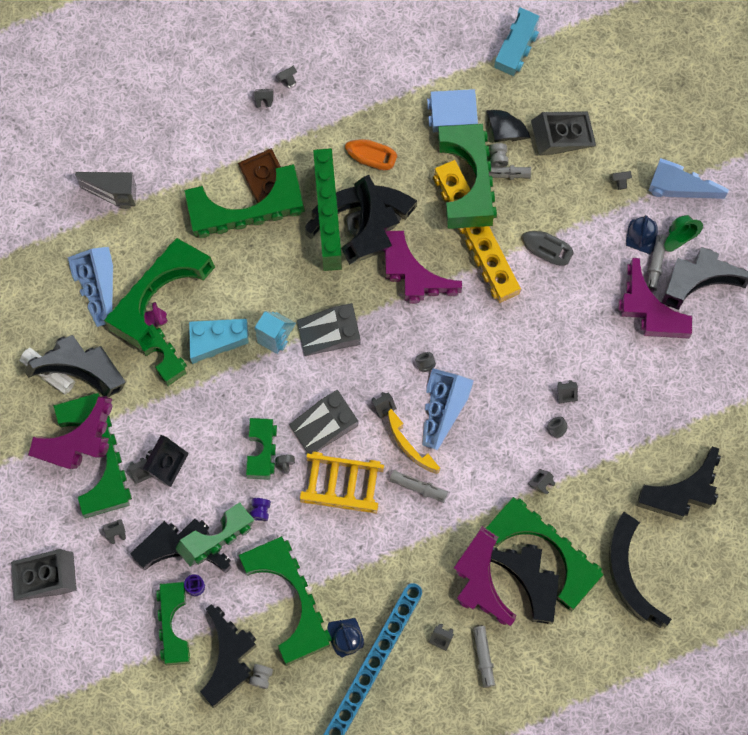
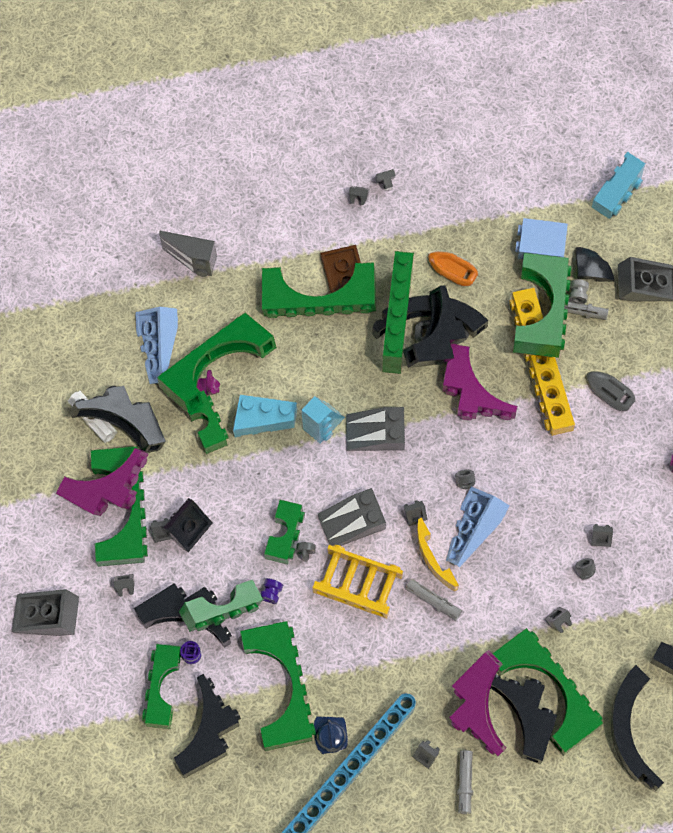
camera: 15 degrees right, 5 degrees down
(260, 676) = (237, 755): light grey wheel -> none

